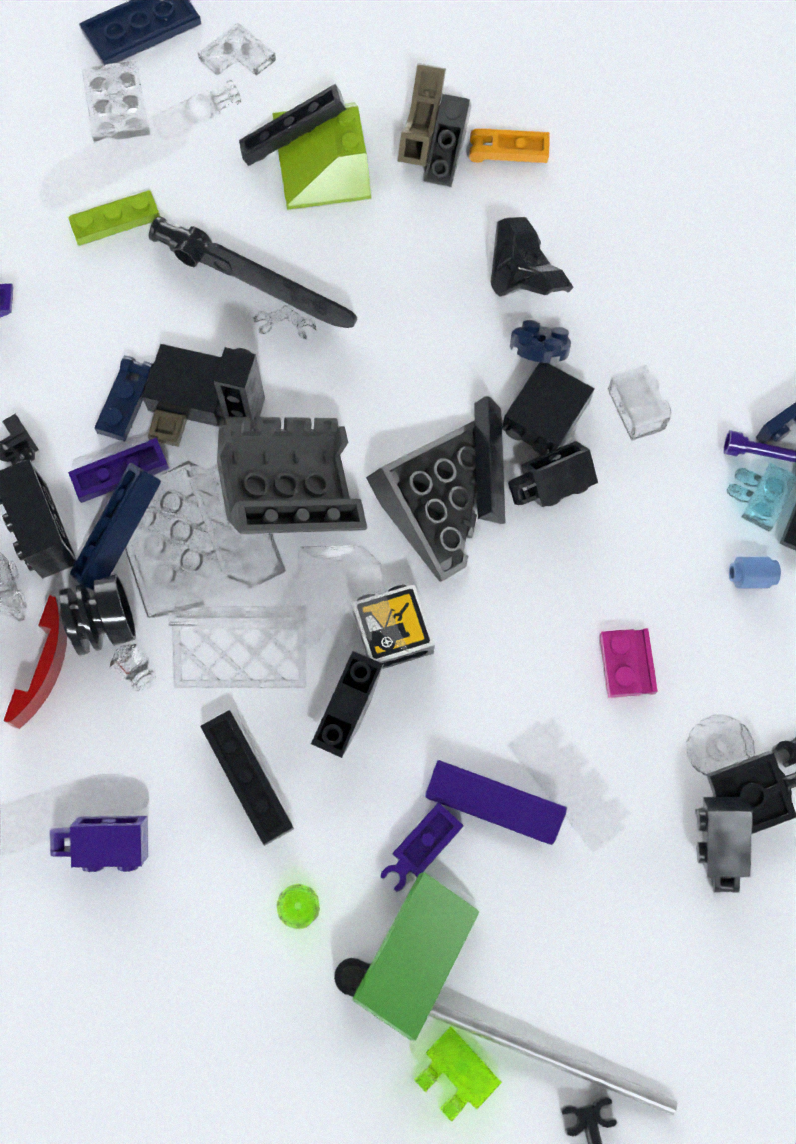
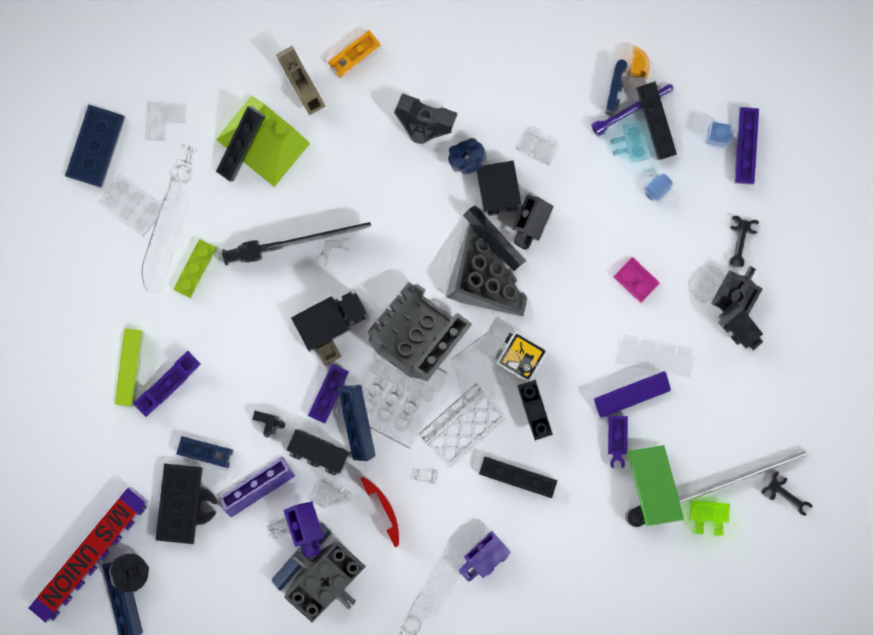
camera: 35 degrees left, 15 degrees up
(91, 616) = (389, 468): black wheel -> none
(124, 399) = (295, 356): dark blue plate -> none
(309, 906) = (585, 503): clear neon green plate -> none
(448, 139) = (322, 79): dark grey slope -> none

